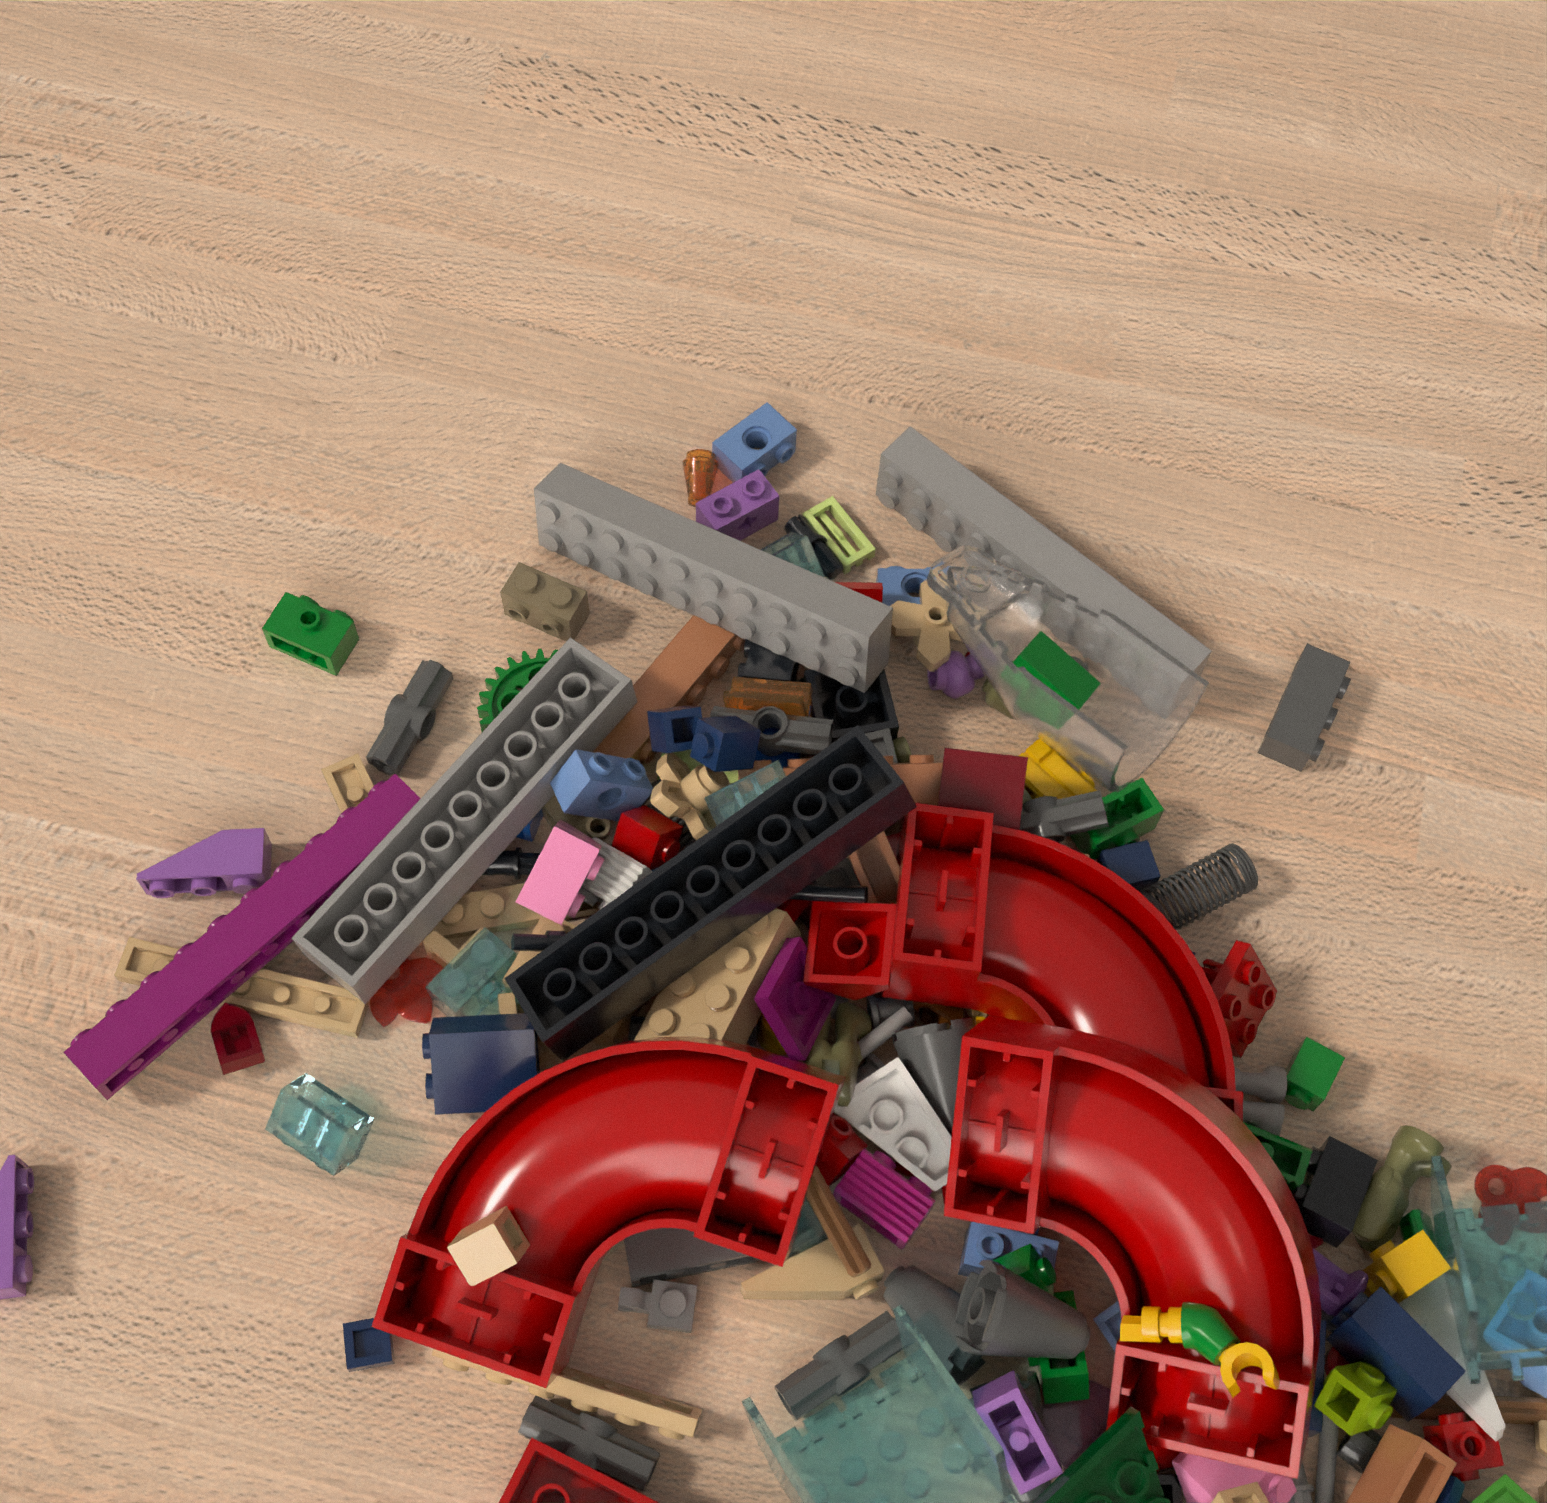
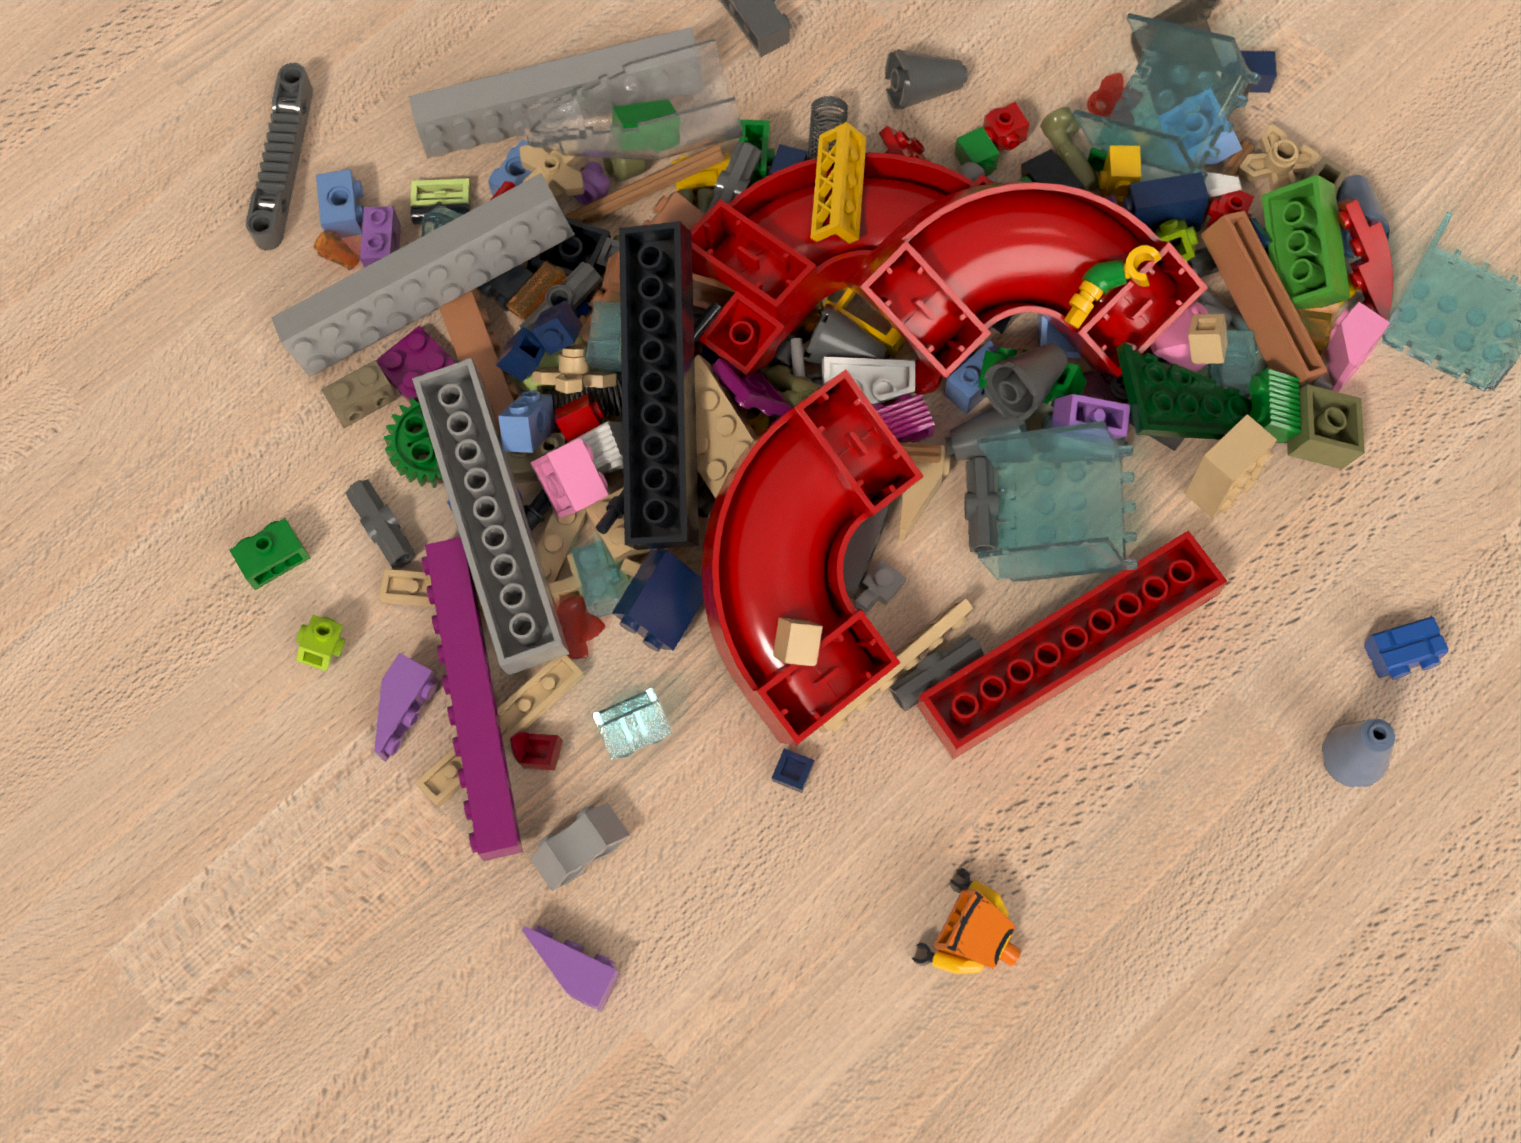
camera: 50 degrees left, 5 degrees up
(152, 1159) = (589, 838): none -> light grey brick
(236, 743) = (319, 642): none -> lime brick
(623, 633) = (411, 358): none -> magenta plate
(852, 326) = (281, 157): none -> dark grey gear
(984, 784) = (690, 197): dark red tile -> none
(986, 730) = (648, 185): none -> medium nougat axle
(1115, 937) = (847, 184): none -> yellow fence
(1362, 948) = (921, 77): none -> dark grey cone
(1367, 1086) = (1006, 127): none -> red brick

